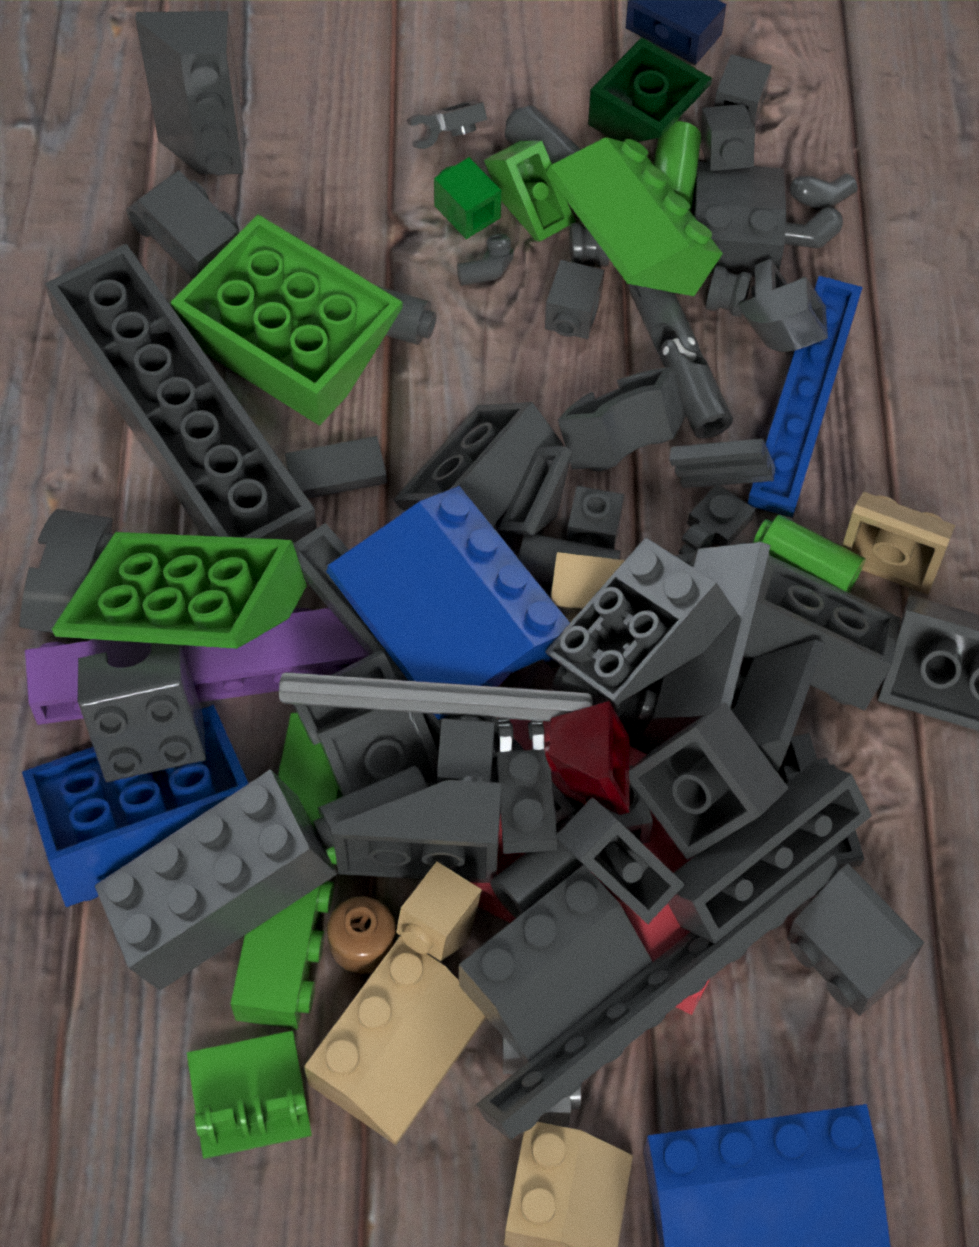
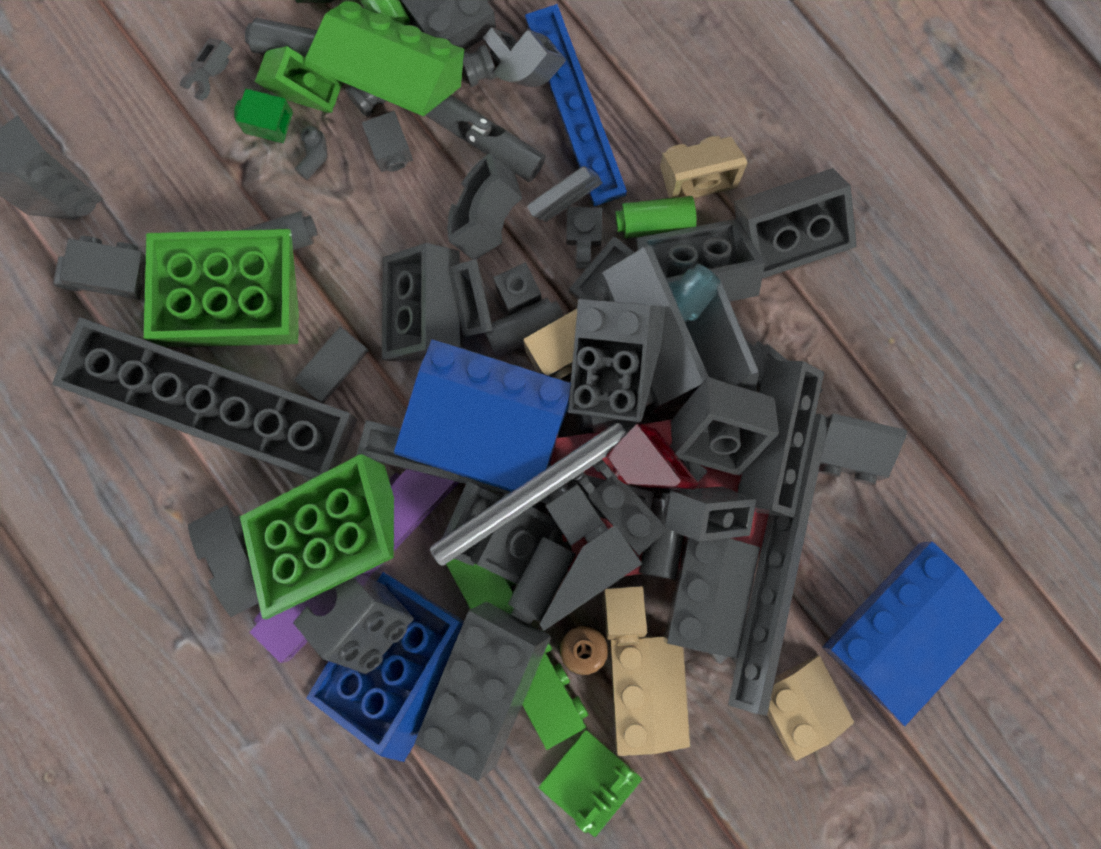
camera: 30 degrees left, 20 degrees up
(783, 631) = (695, 291): none -> clear light blue brick

